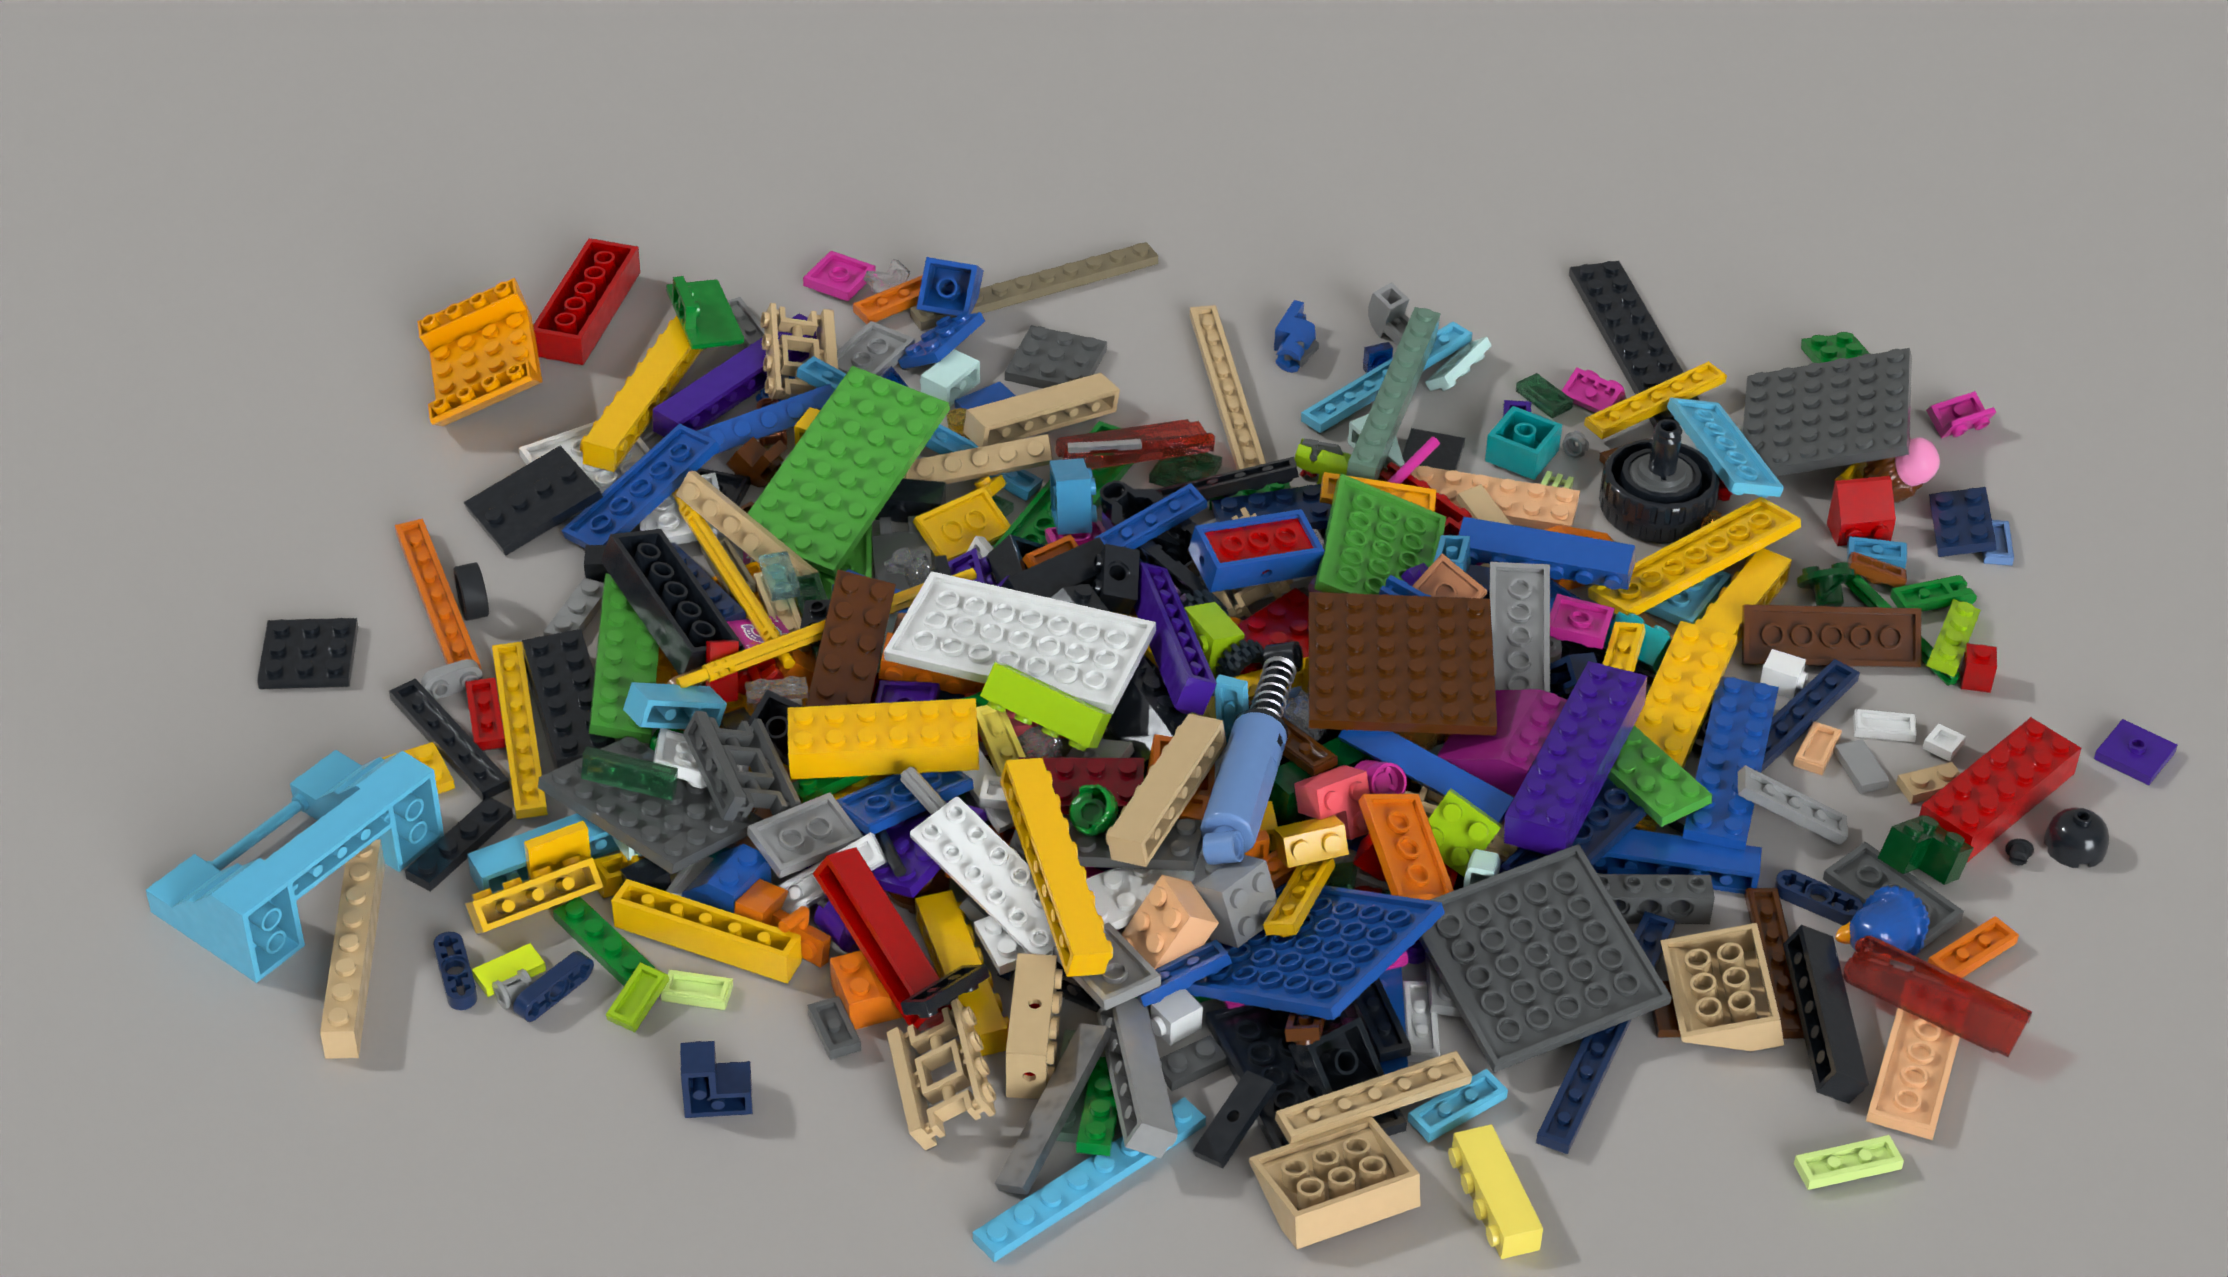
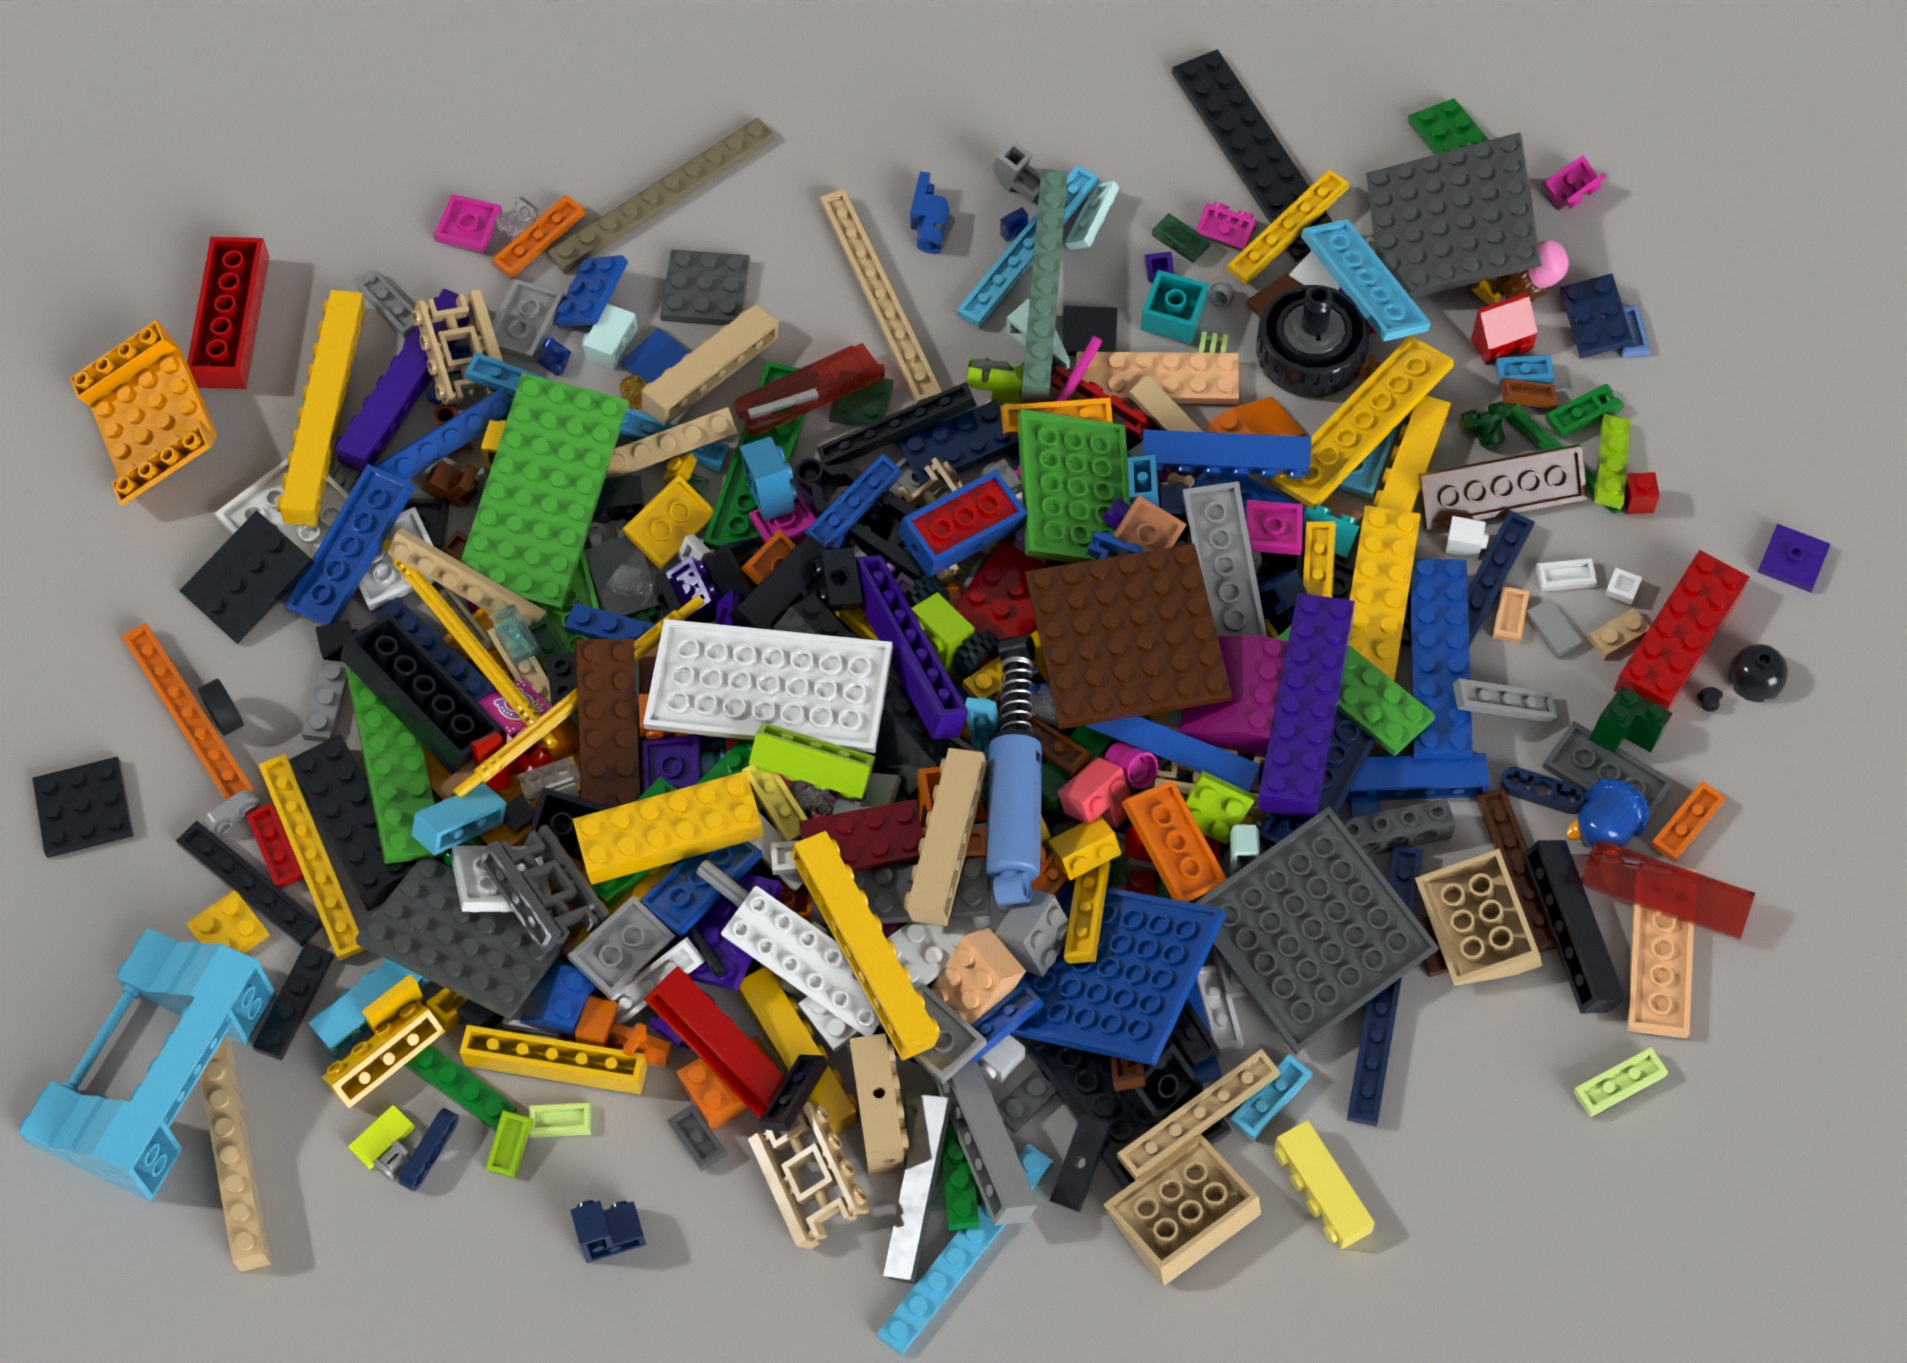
camera: 10 degrees left, 20 degrees up
(451, 981) = (315, 1136): dark blue beam -> none
(629, 773) = (441, 919): clear green plate -> none
(704, 313) = (352, 313): green bracket -> none
(949, 287) = (583, 226): blue slope -> none
(1093, 810) = (885, 874): green hair -> none

